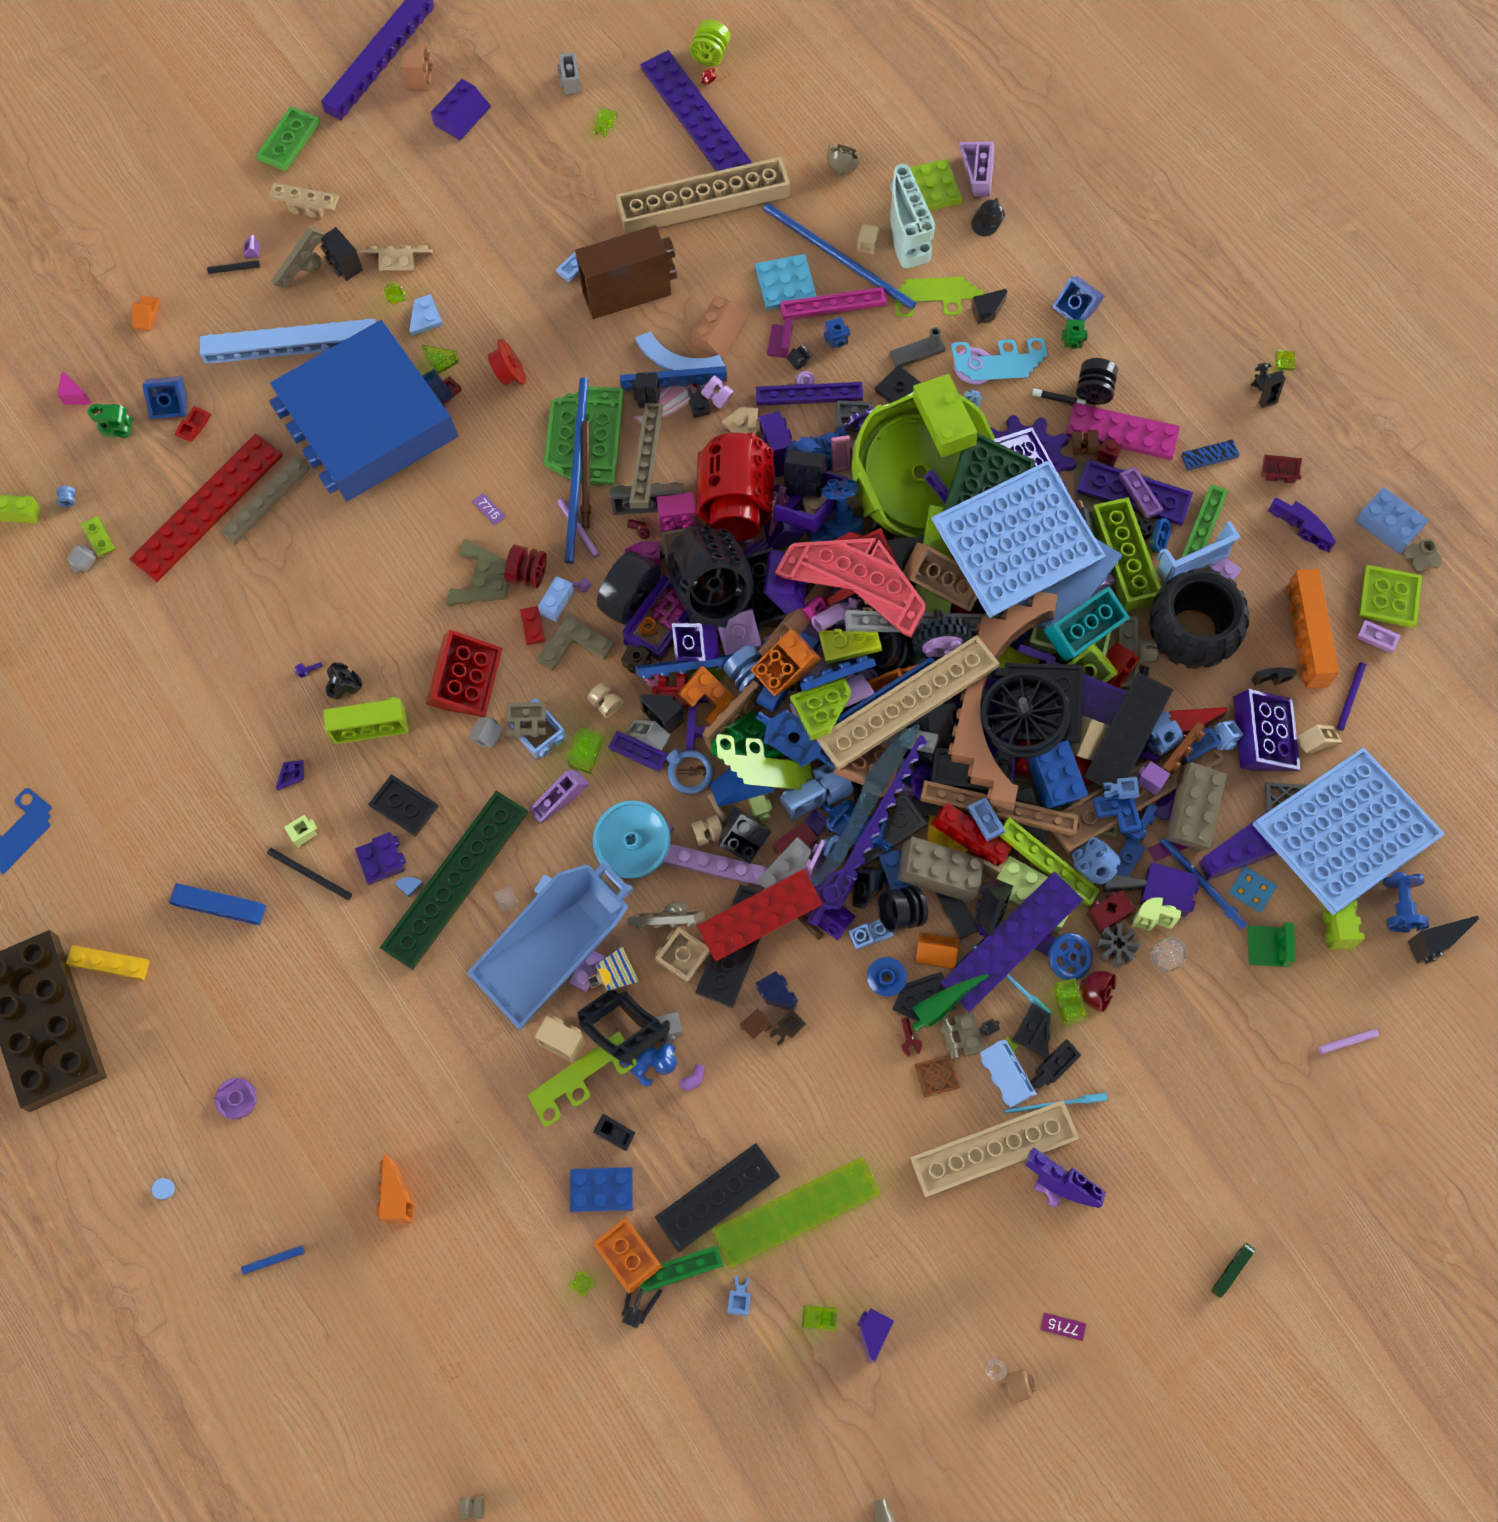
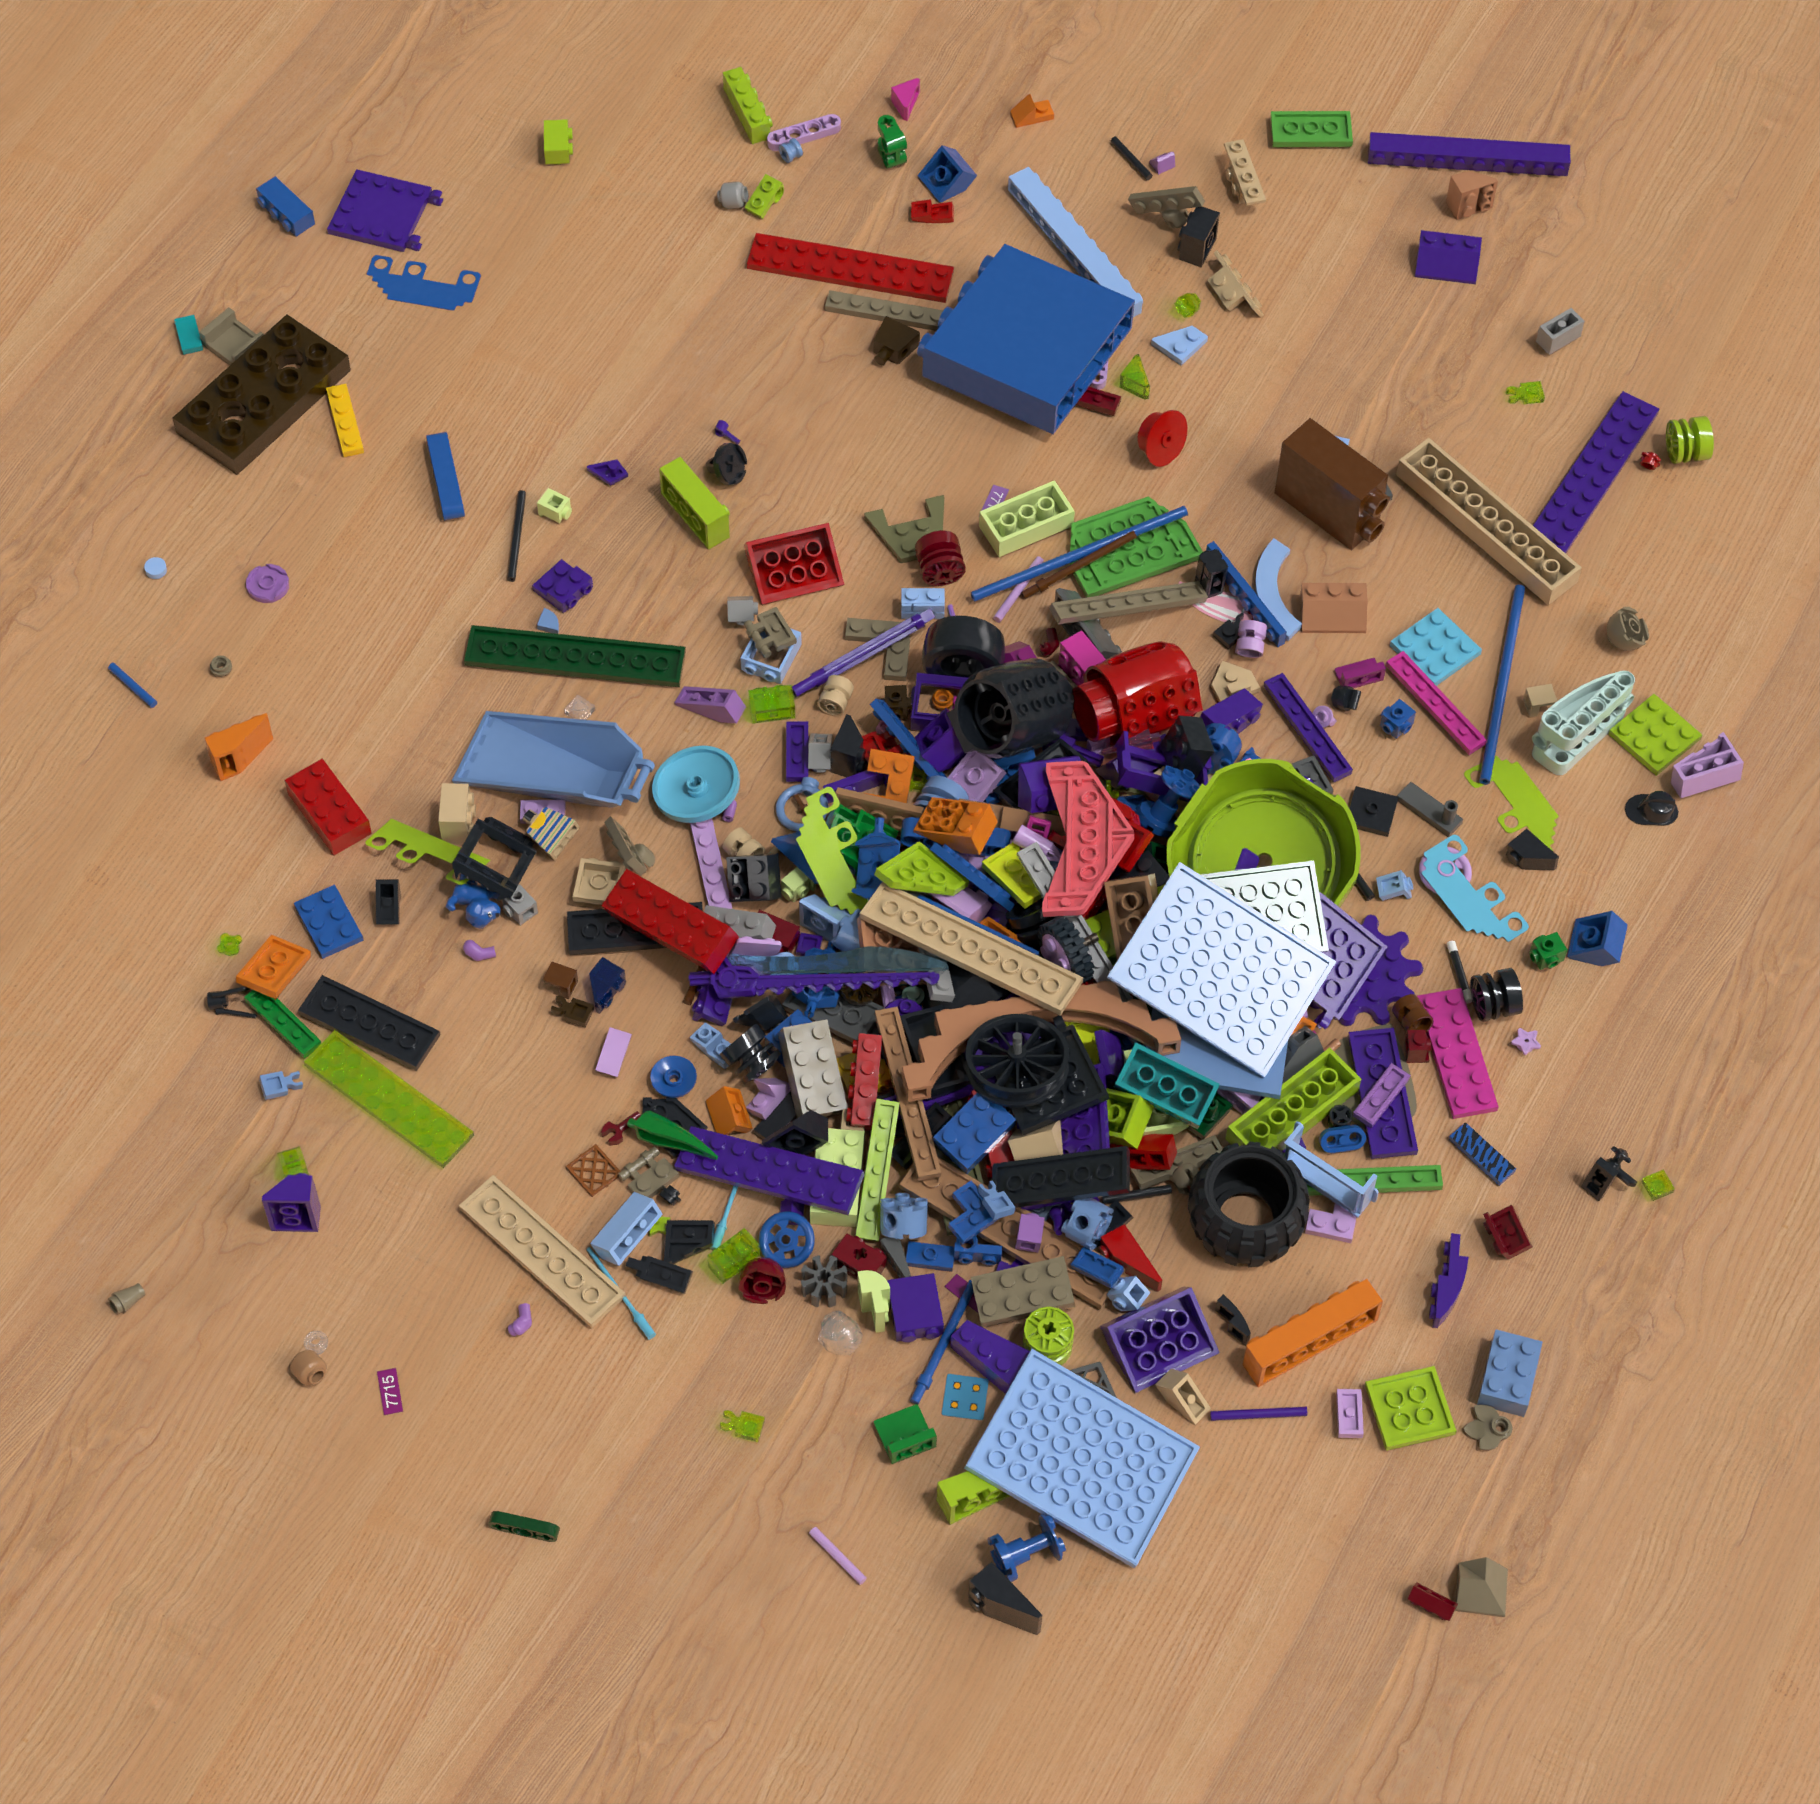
camera: 60 degrees right, 10 degrees down
(53, 479) = (805, 134): none -> lavender beam
(293, 1171) = (220, 661): none -> dark tan plate
(299, 507) = (894, 341): none -> dark brown torso
(403, 805) = (627, 578): black plate -> none
(438, 386) = (1099, 389): clear blue tile -> none
(492, 1142) = (328, 806): none -> red brick
(523, 490) = (1026, 518): none -> yellowish green brick
(532, 625) = (882, 599): red plate -> none
(577, 661) = (864, 651): none -> piece
(842, 1012) = (613, 1052): none -> lavender slope
(939, 914) = (770, 1095): none -> lavender slope
(945, 415) = (1310, 825): lime brick -> none
(986, 819) = (881, 1078): medium blue plate -> none
(1068, 1184) = (536, 1328): dark purple slope -> none
(1135, 388) = (1522, 1045): none -> lavender plate
(1184, 748) = (1080, 1247): dark orange plate -> none
(1215, 1059) = (747, 1426): none -> clear neon green plate
(1236, 817) = (1058, 1343): none -> lime wheel

